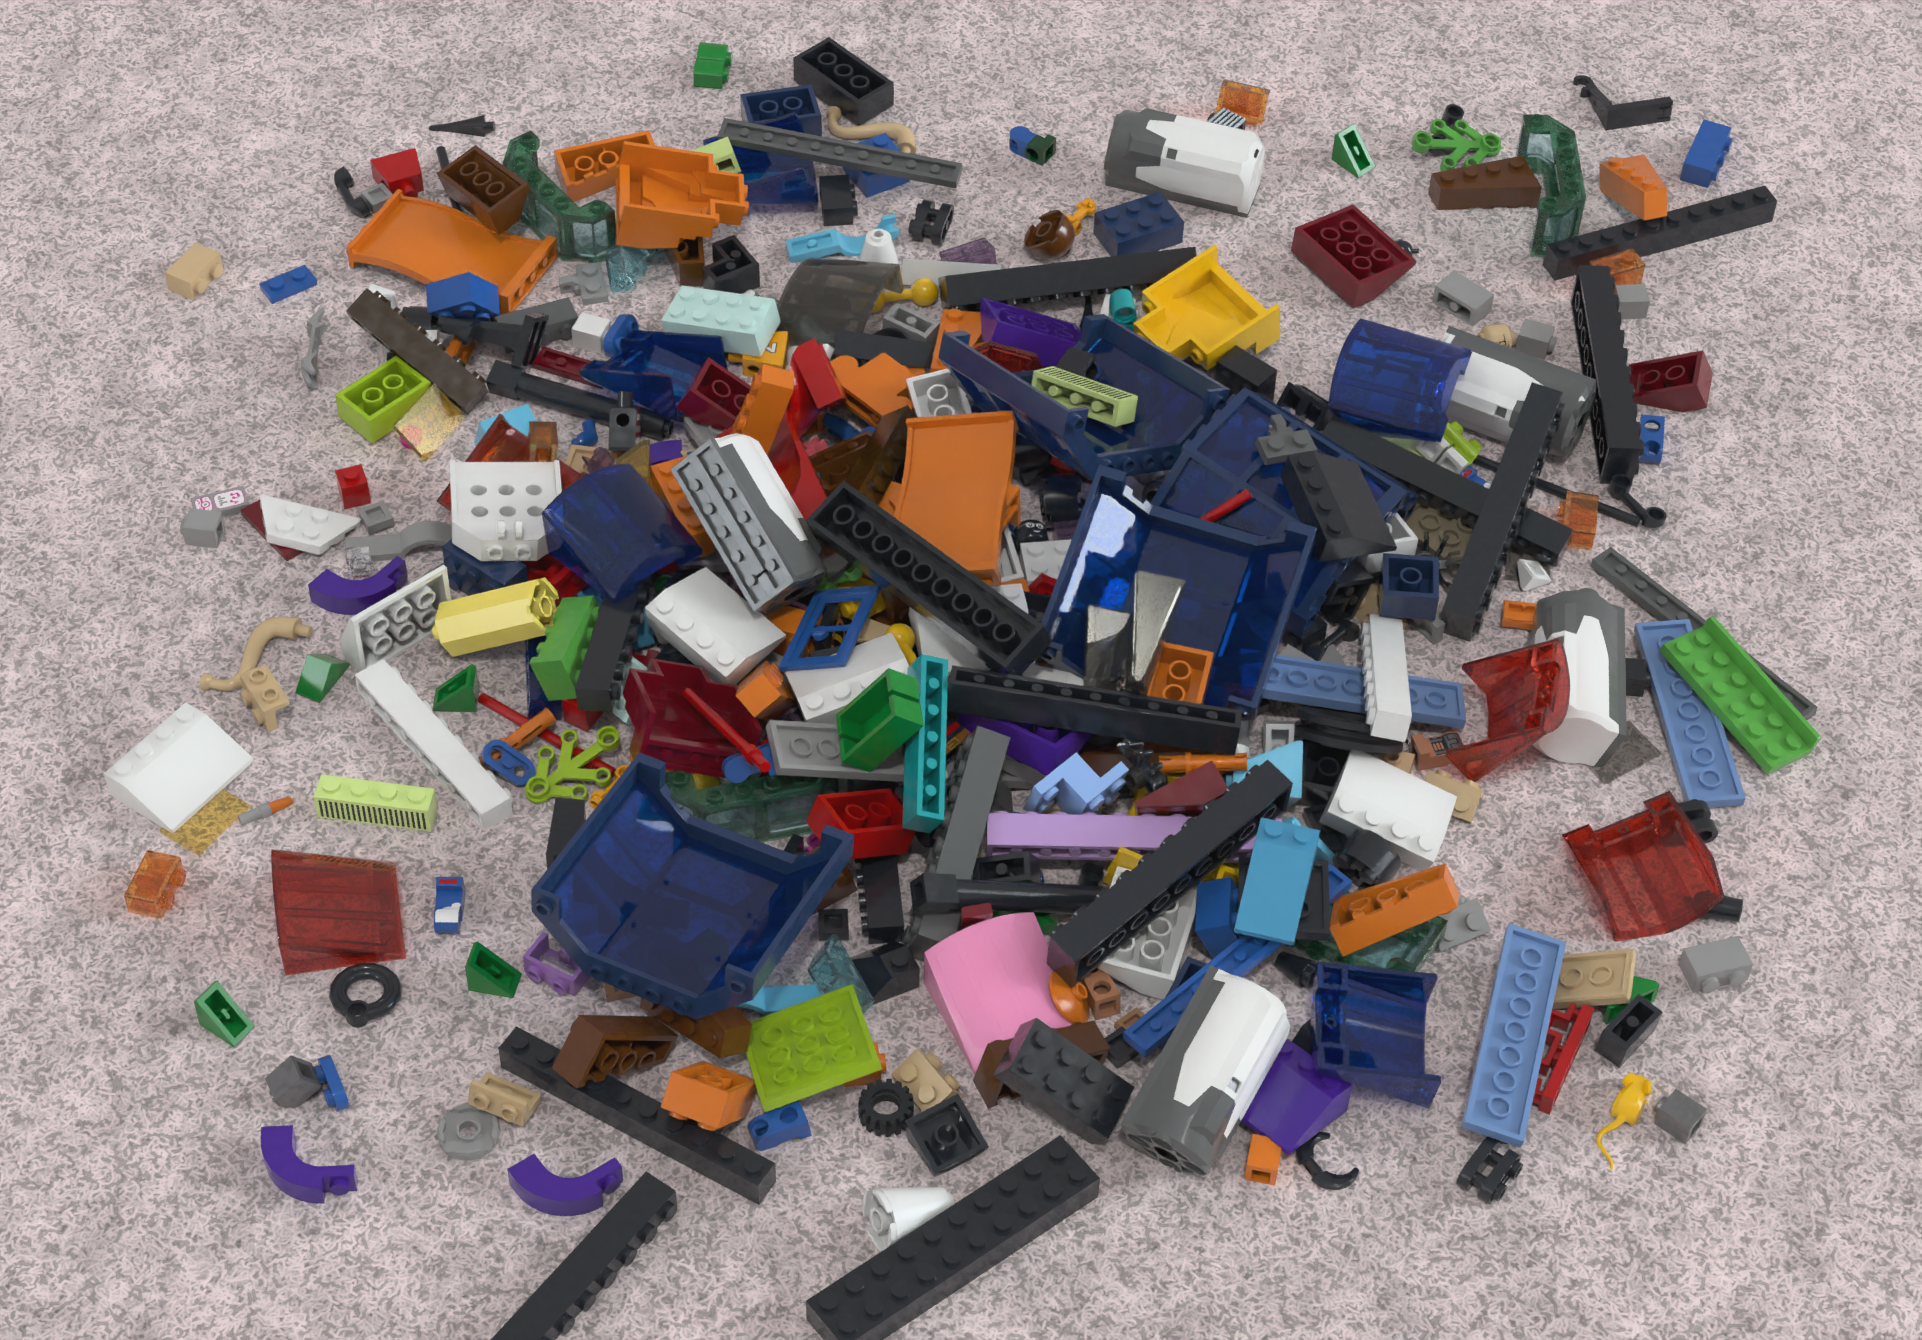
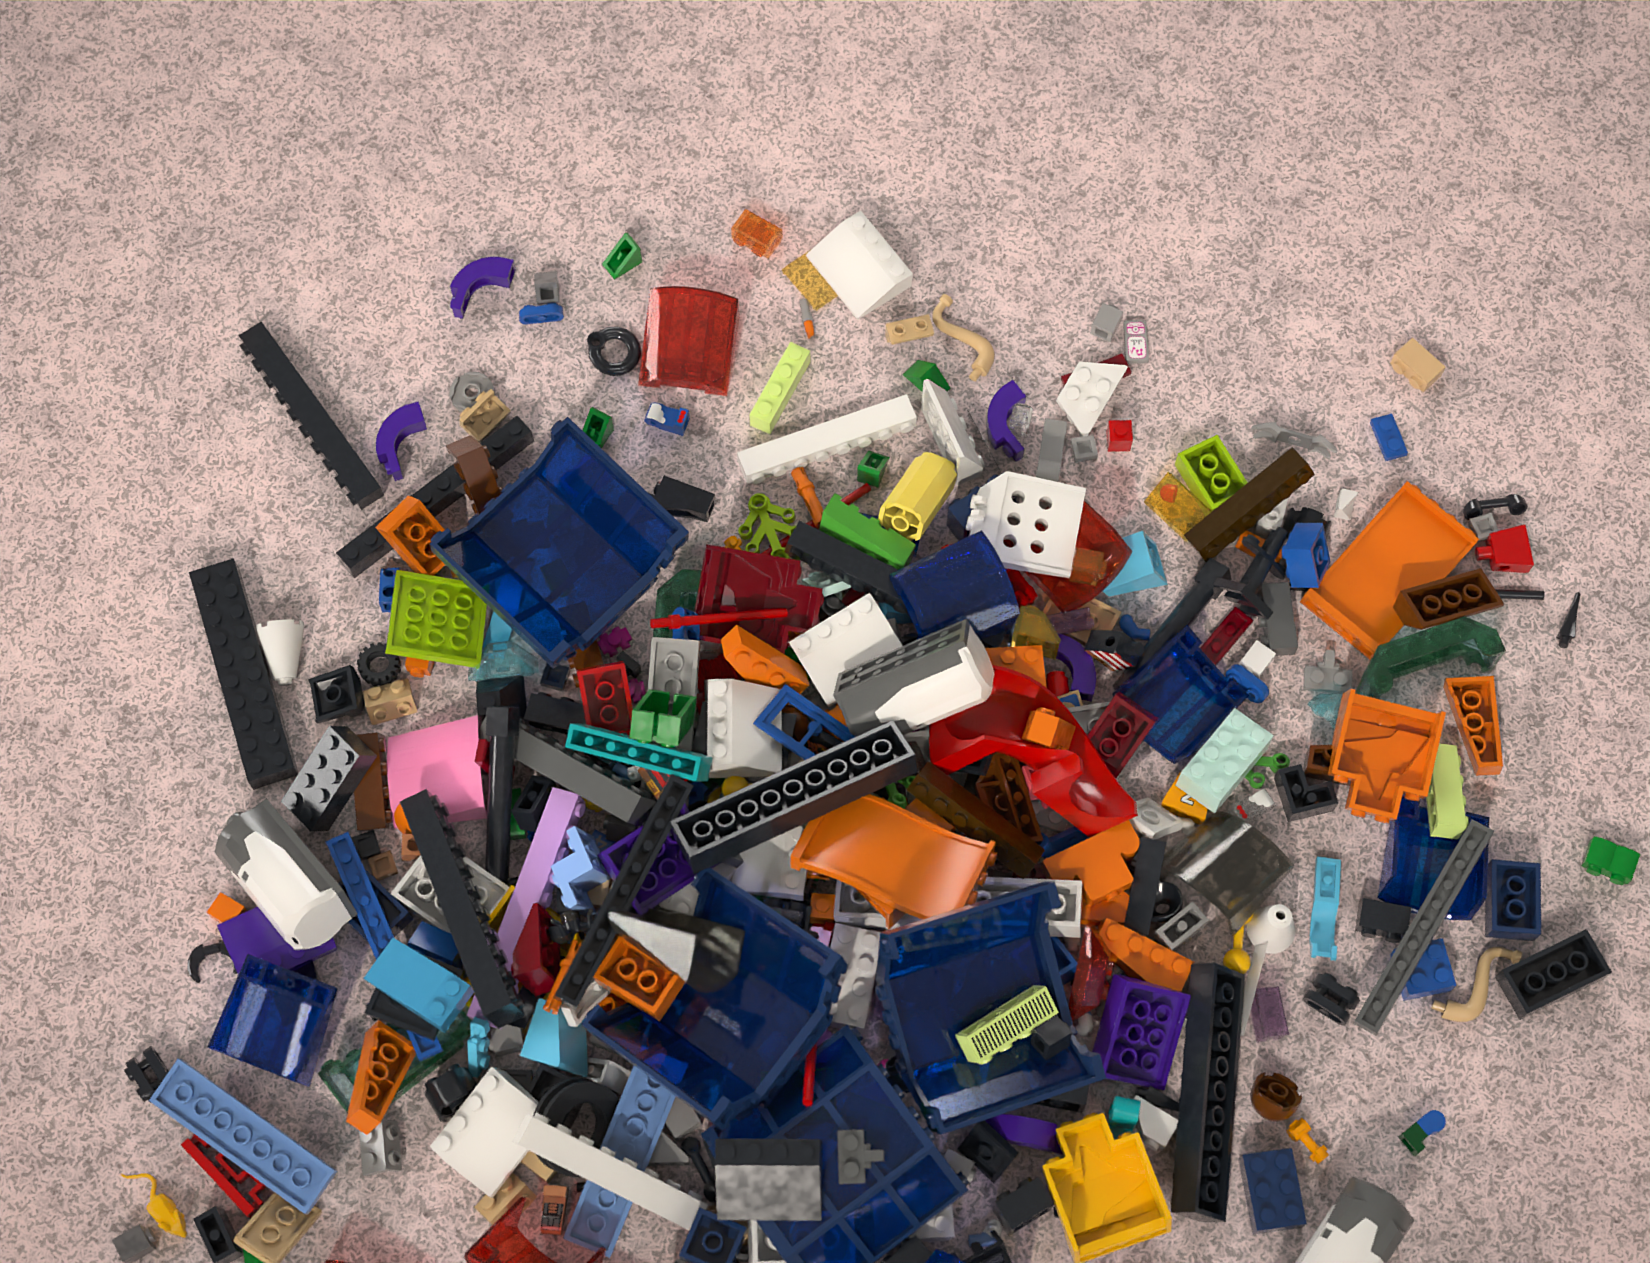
camera: 110 degrees right, 20 degrees up
(508, 761) = (786, 484): blue plate -> none

